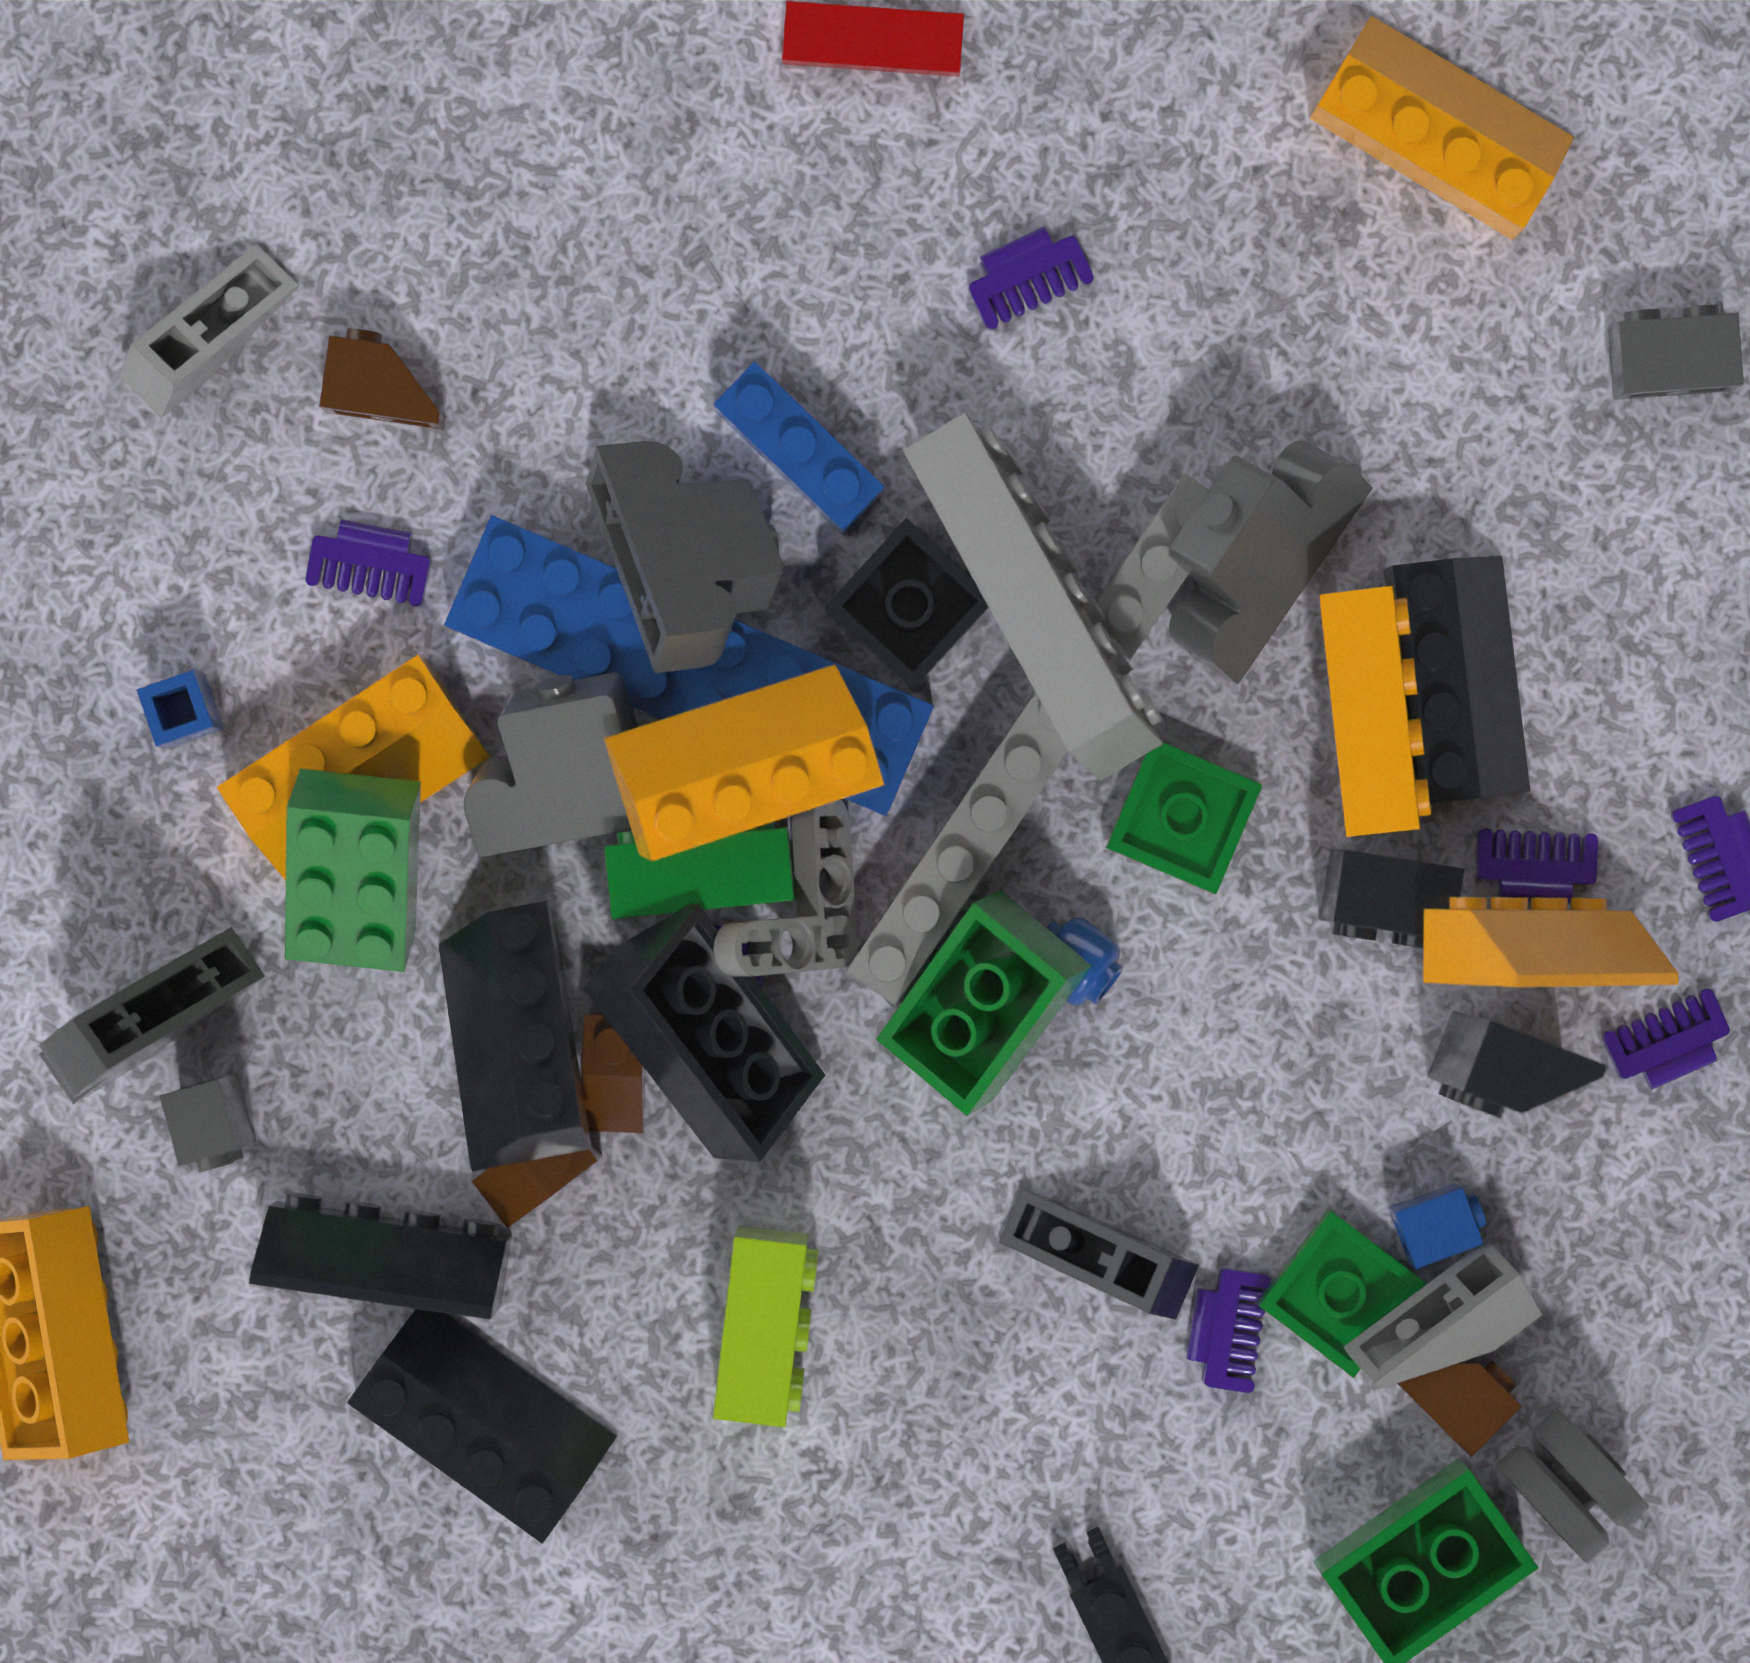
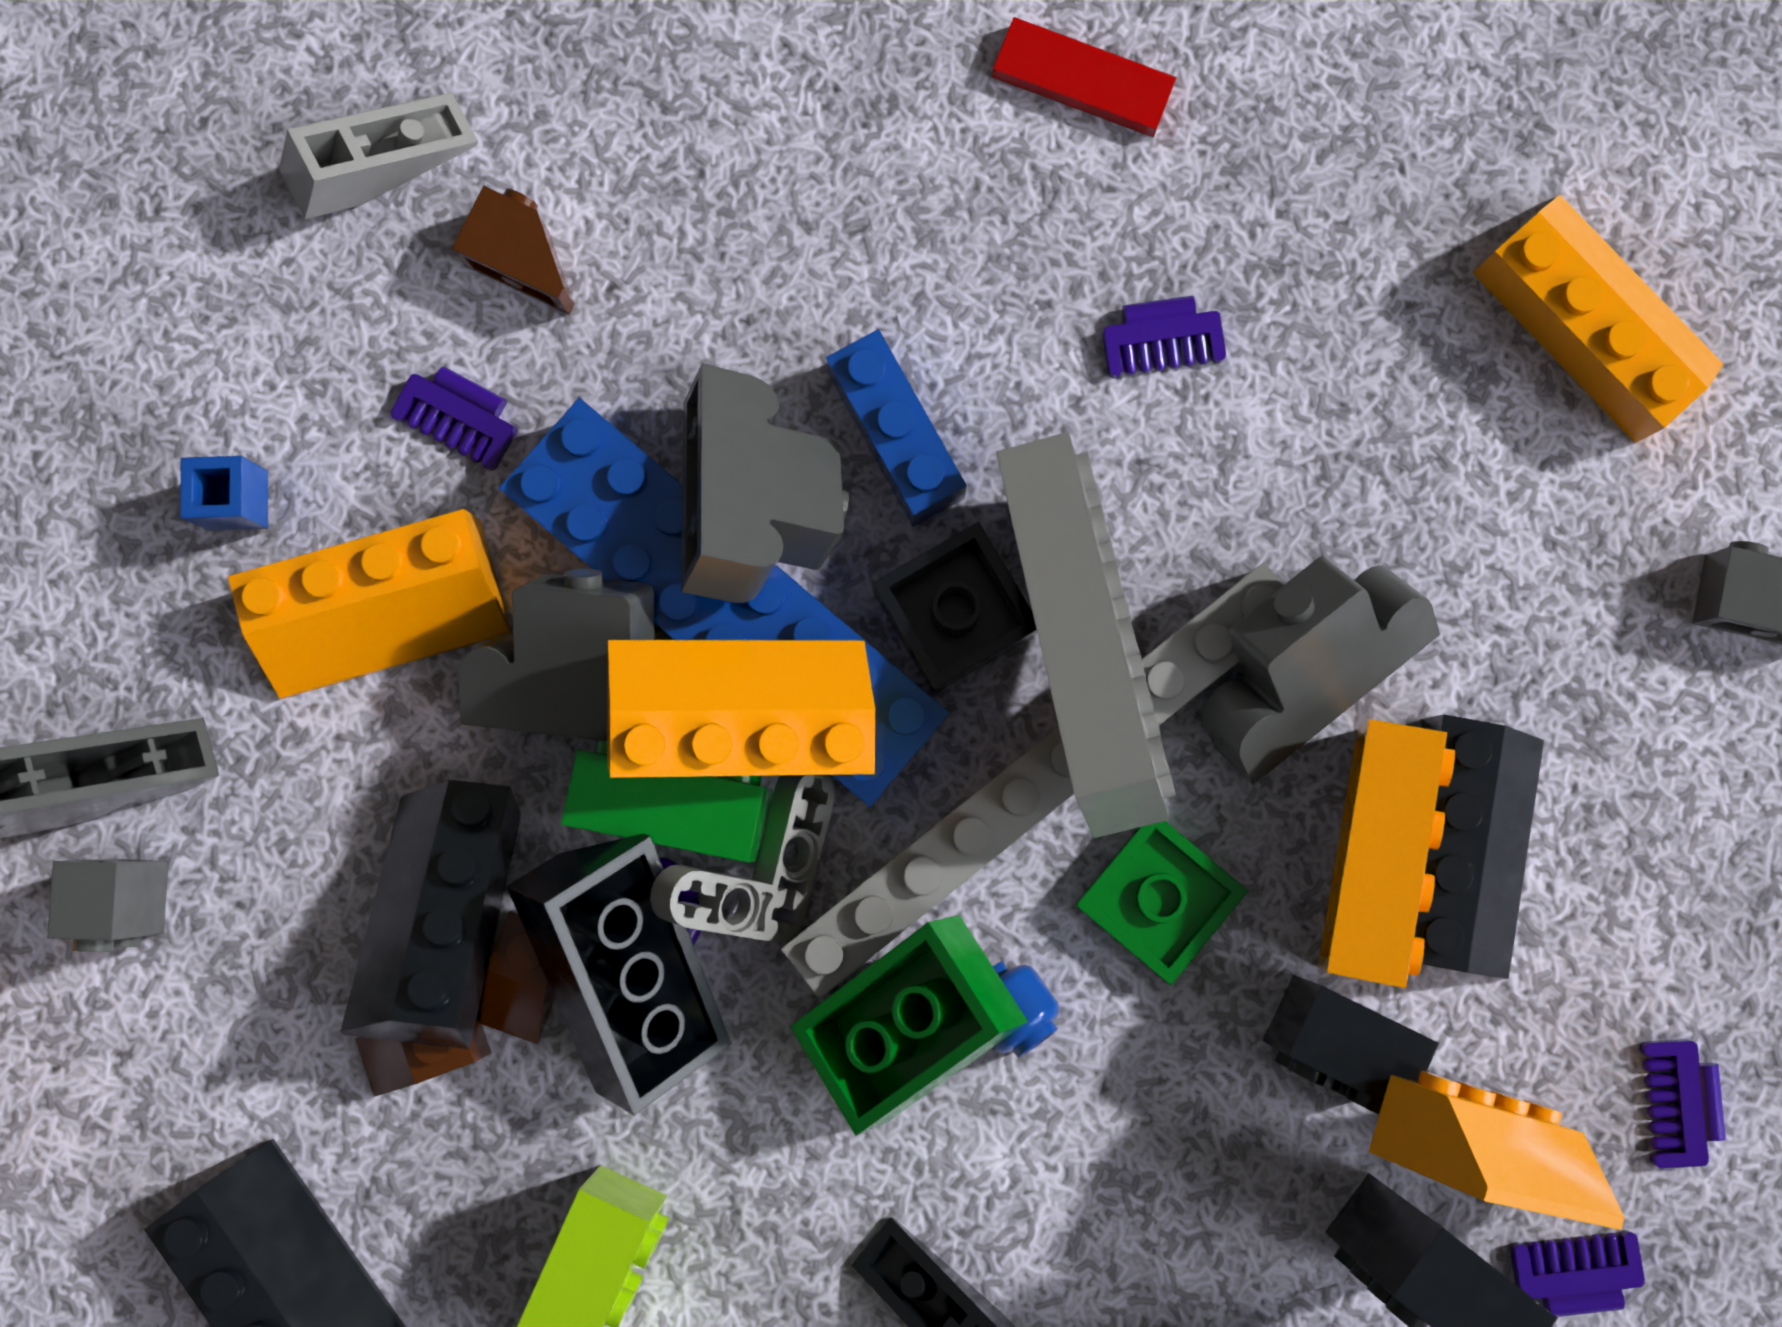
camera: 20 degrees right, 5 degrees down
(351, 870) = (328, 696): green brick -> none
(382, 1257) = (231, 1093): black slope -> none
(1538, 877) = (1491, 1067): dark purple piece -> none

